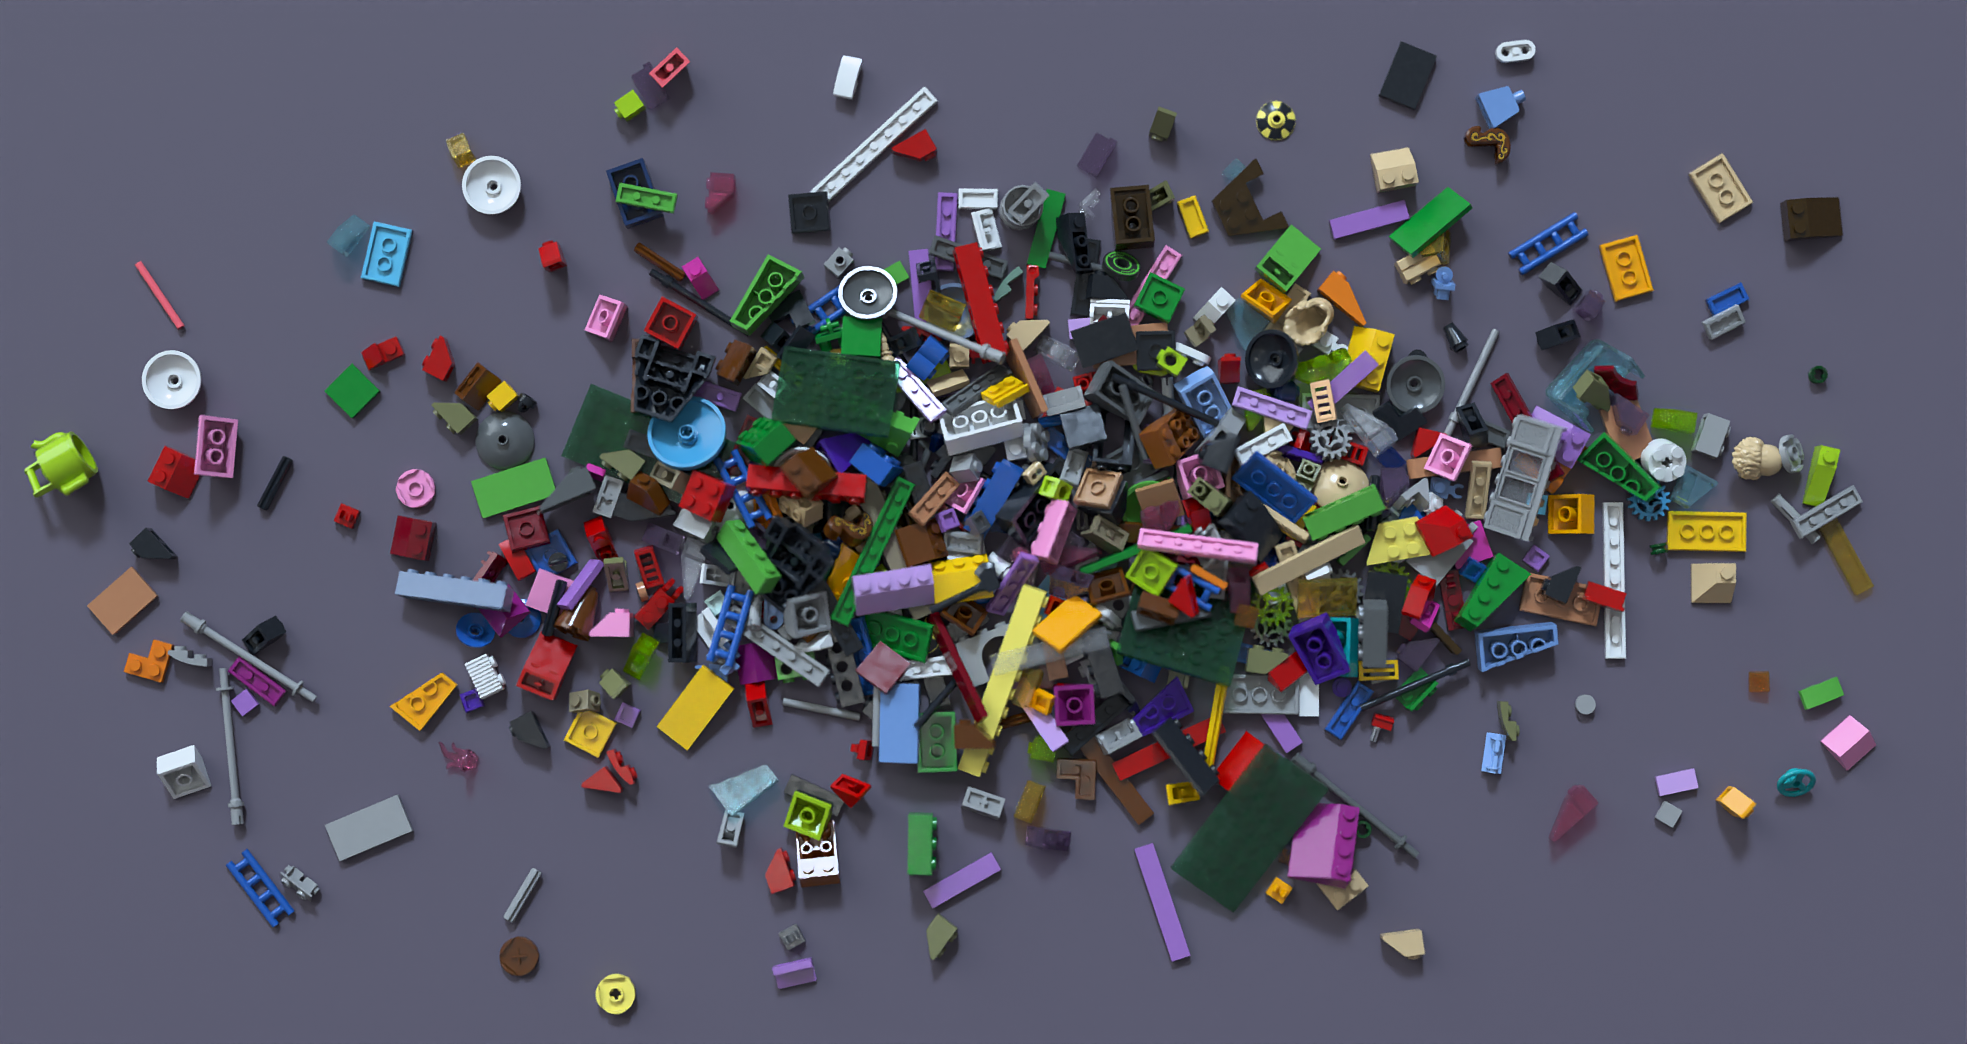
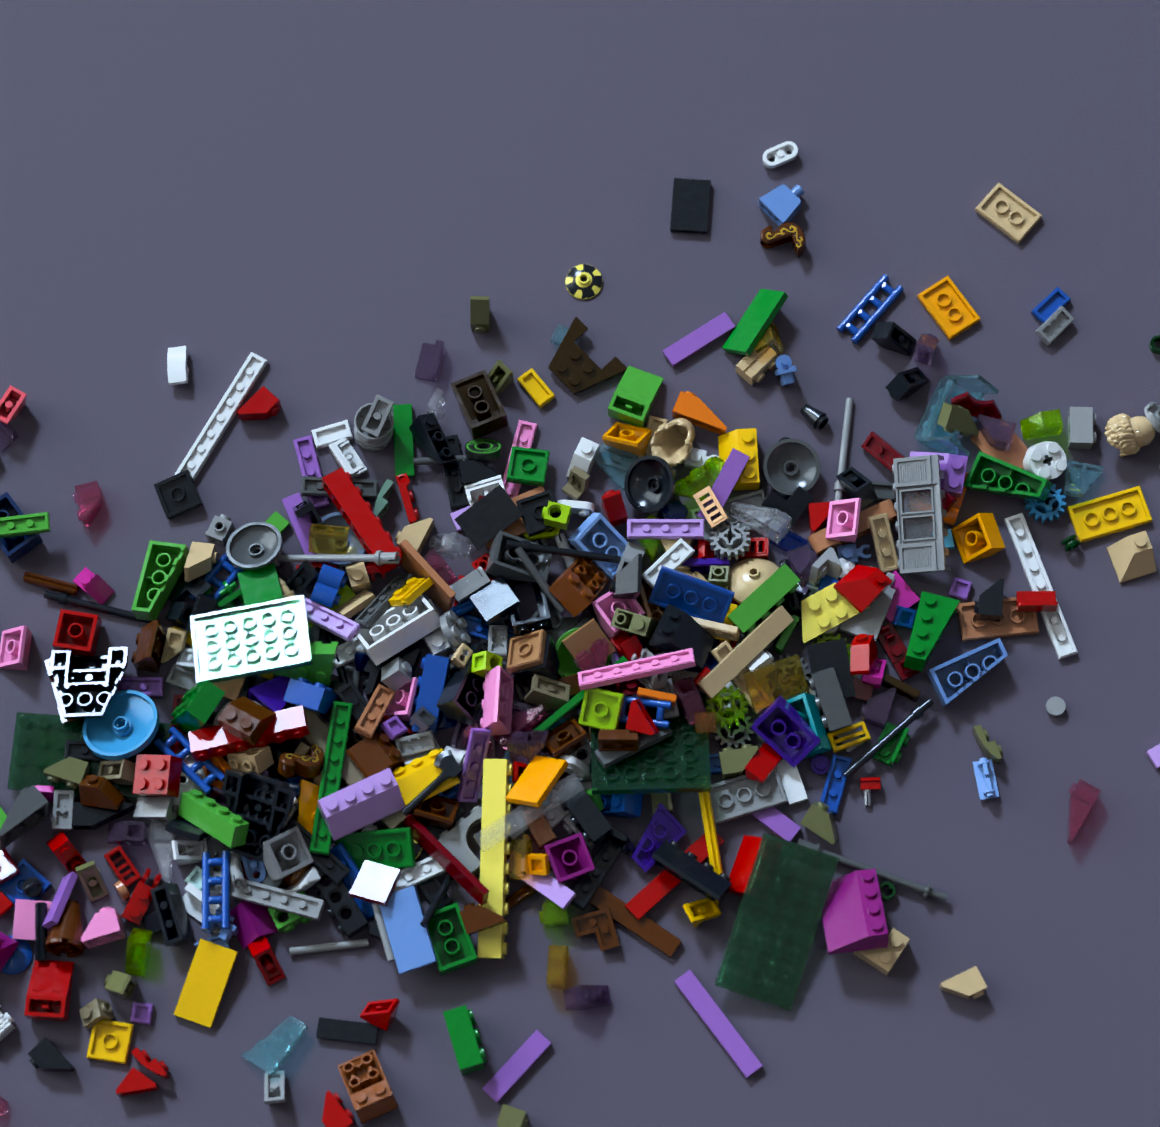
camera: 10 degrees left, 15 degrees down
(808, 815) = (346, 1048): lime slope -> none
(811, 288) = (199, 560): none -> tan slope
(863, 749) = (381, 970): red tile -> none
(929, 433) = (349, 654): black bar -> none
(983, 803) = (513, 984): light grey hinge -> none
(1118, 736) = (623, 878): light grey hinge -> none
(1278, 890) = (827, 975): light orange tile -> none
(1323, 744) = (821, 821): none -> olive slope
(1394, 170) = (707, 290): tan slope -> none
(1811, 218) = (1099, 212): dark brown slope -> none

